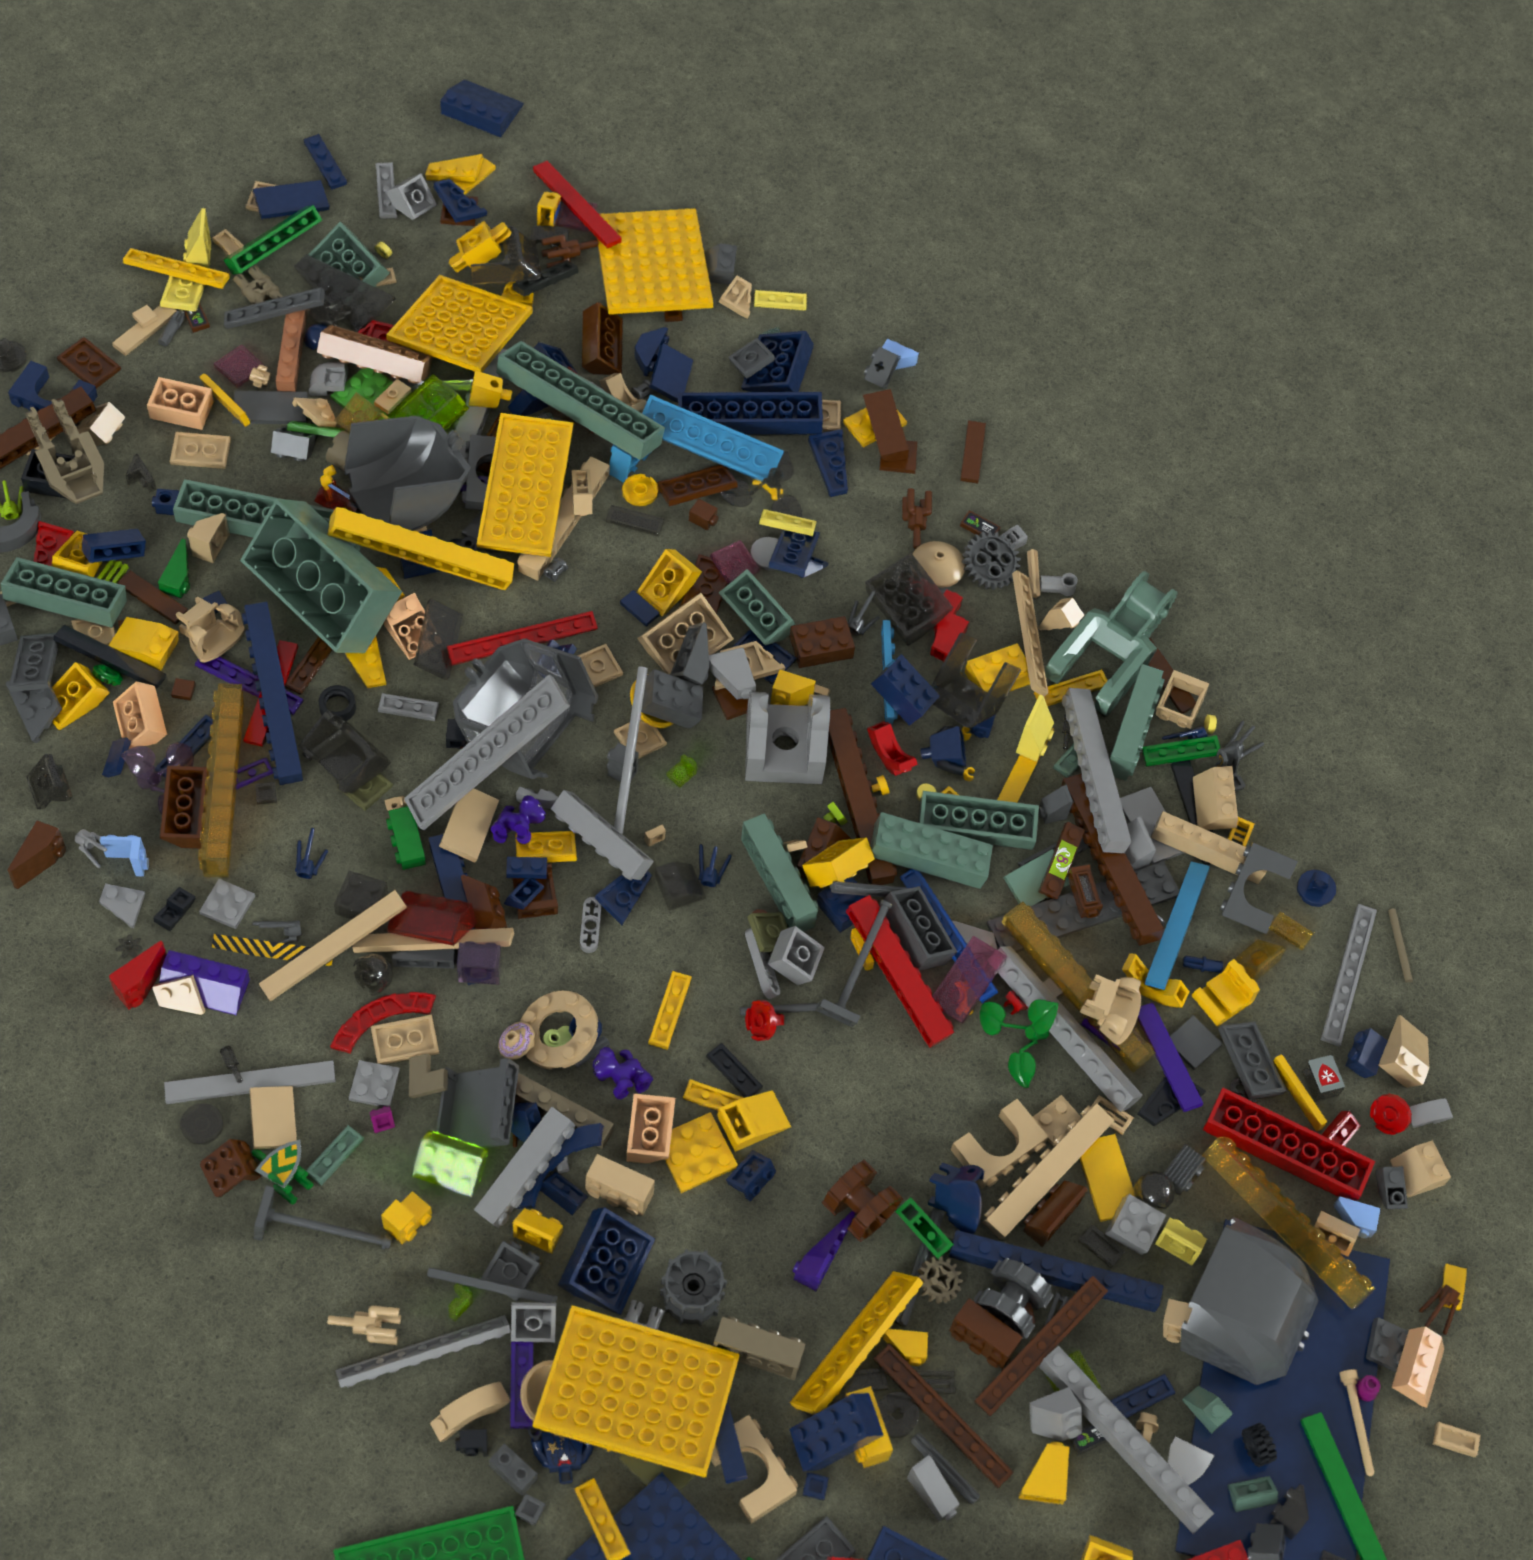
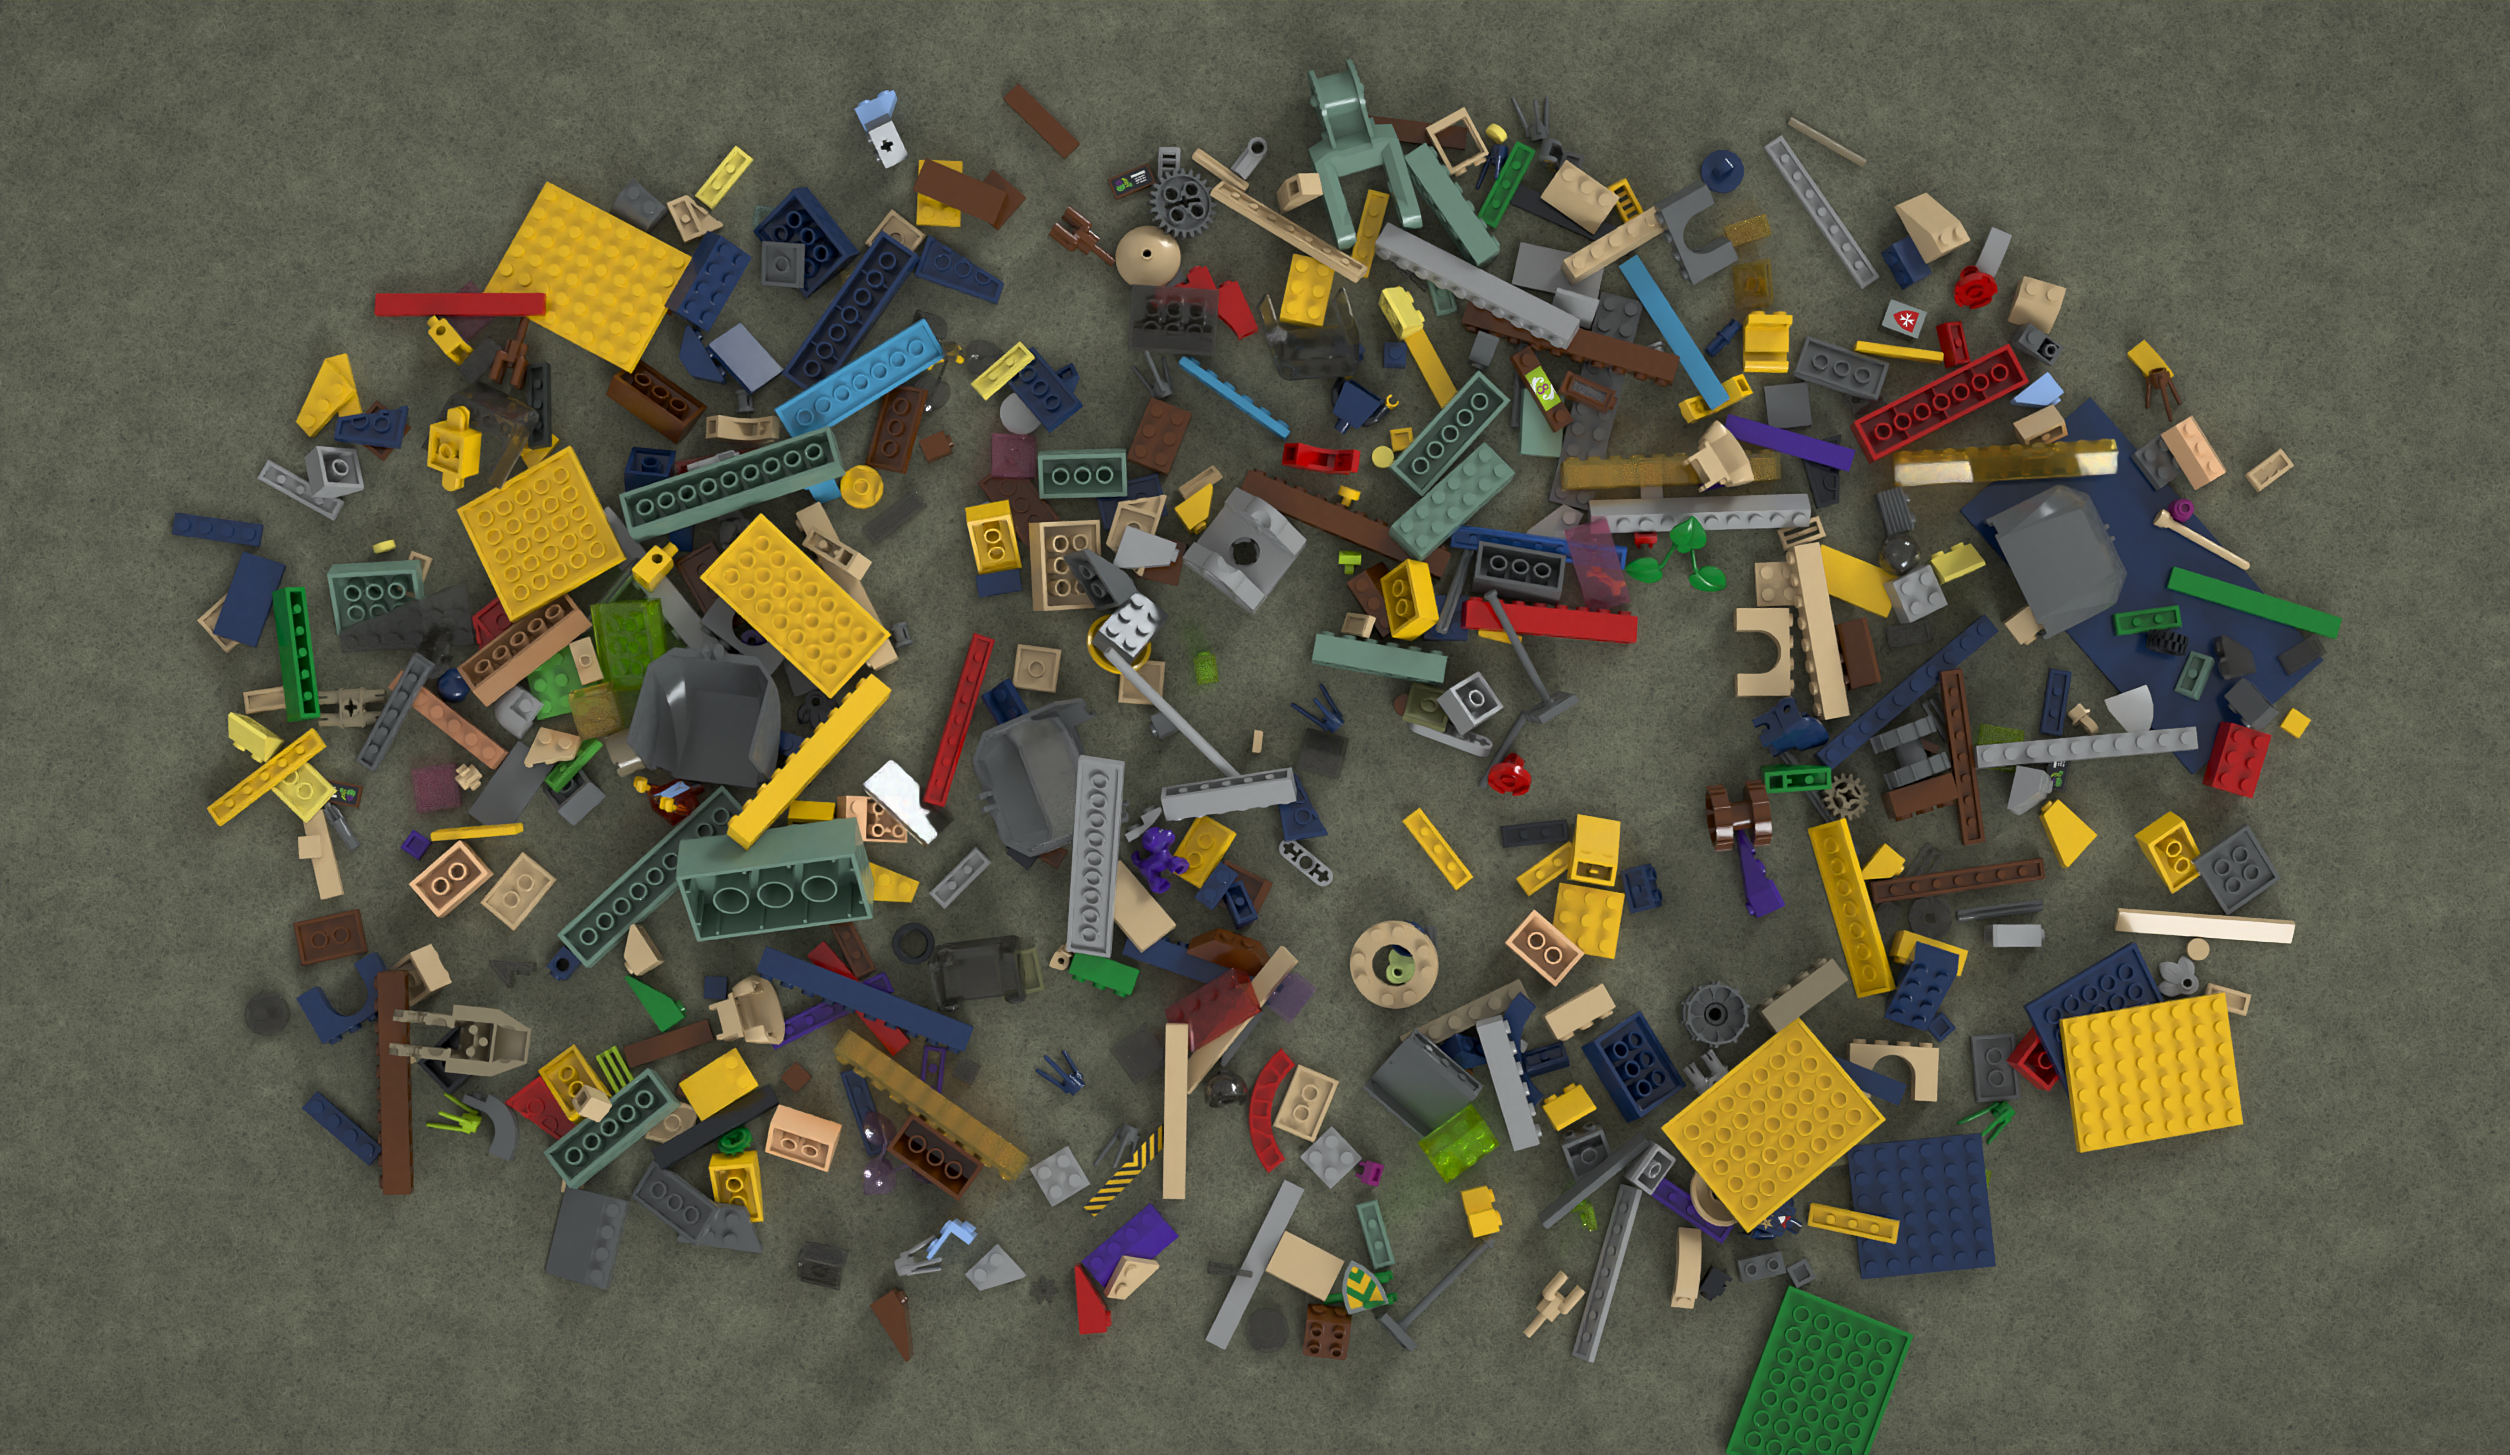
camera: 50 degrees left, 25 degrees up
(73, 560) = (591, 1103): none -> tan brick
(113, 545) = (589, 1049): dark blue brick -> none
(114, 761) = (834, 1185): dark blue tile -> none
(176, 907) = (1033, 1227): black slope -> none
(190, 375) = (416, 845): none -> dark purple tile
(423, 1080) = (1359, 1115): dark tan tile -> none
(480, 107) = (251, 313): dark blue slope -> none
(516, 1040) = (1381, 1000): dish -> none
(623, 1074) = (1460, 944): dark purple animal -> none
(704, 321) = (708, 281): none -> dark blue brick
(905, 689) = (1271, 401): dark blue brick -> none
(1003, 753) = (1394, 355): none -> dark blue brick
(1207, 1408) = (2106, 659): sand green slope -> none
(1253, 1412) = (2144, 620): none -> green tile

